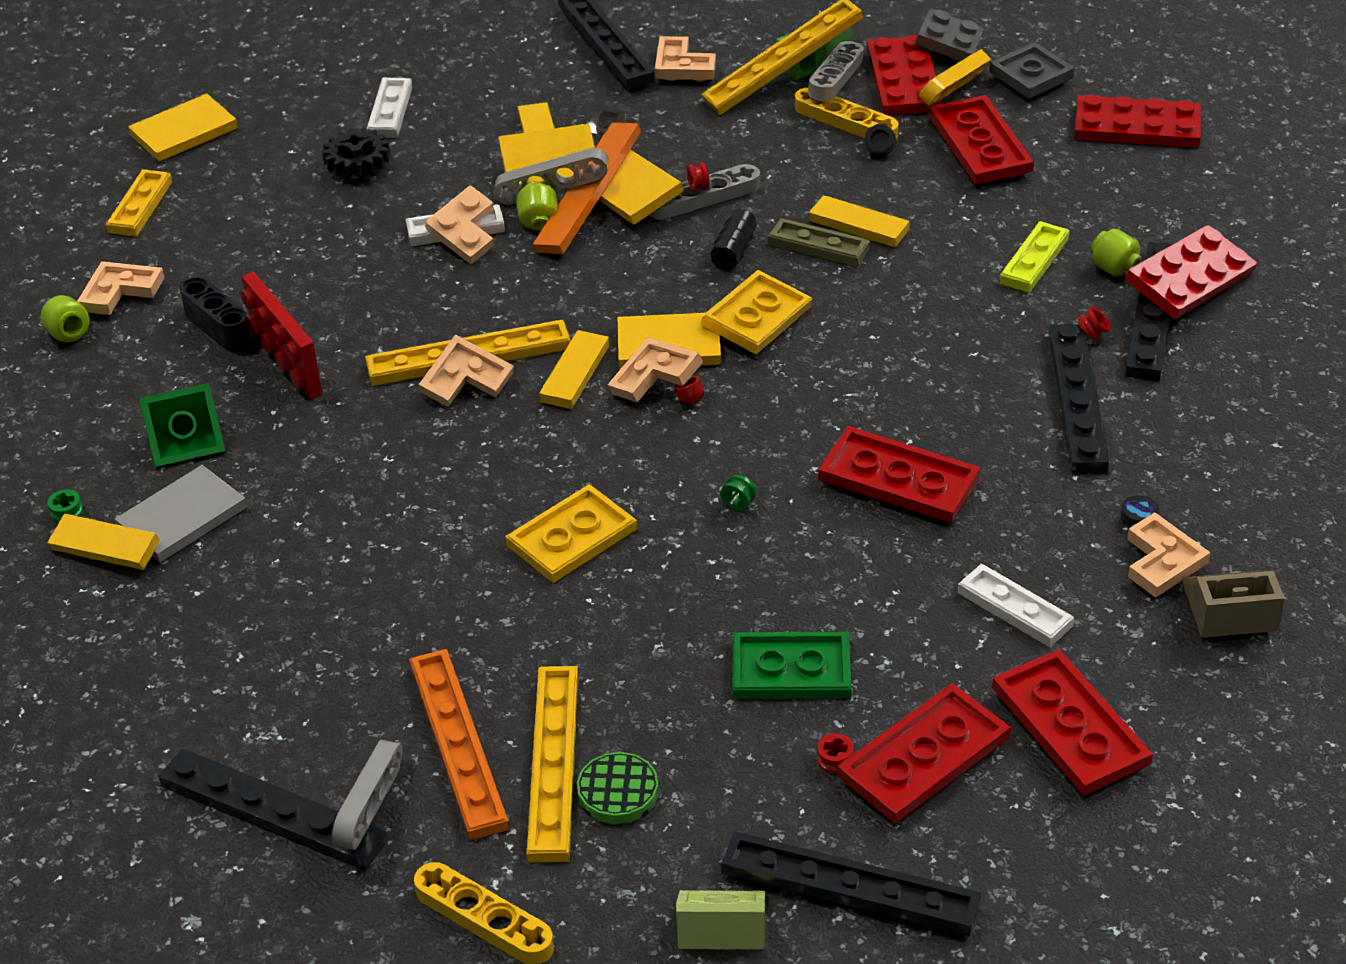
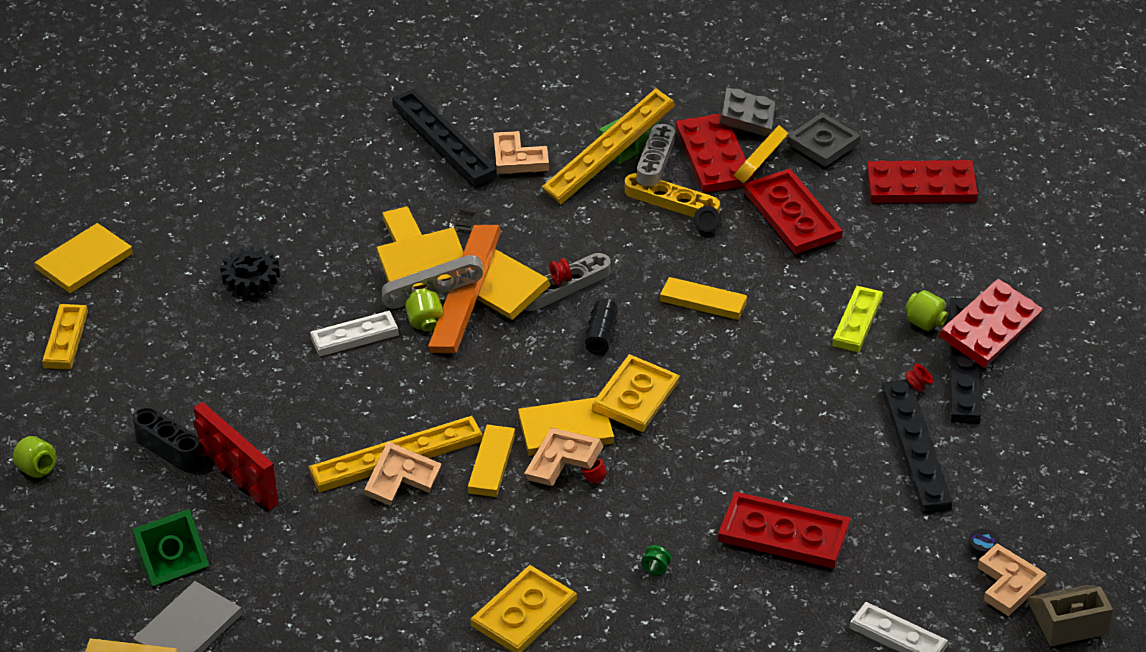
camera: 10 degrees left, 0 degrees up
(61, 499) = (84, 623): green bush -> none
(119, 279) = (69, 414): light nougat plate -> none
(390, 106) = (266, 222): white tile -> none
(457, 225) = (358, 335): light nougat plate -> none
(819, 242) = (673, 321): olive tile -> none

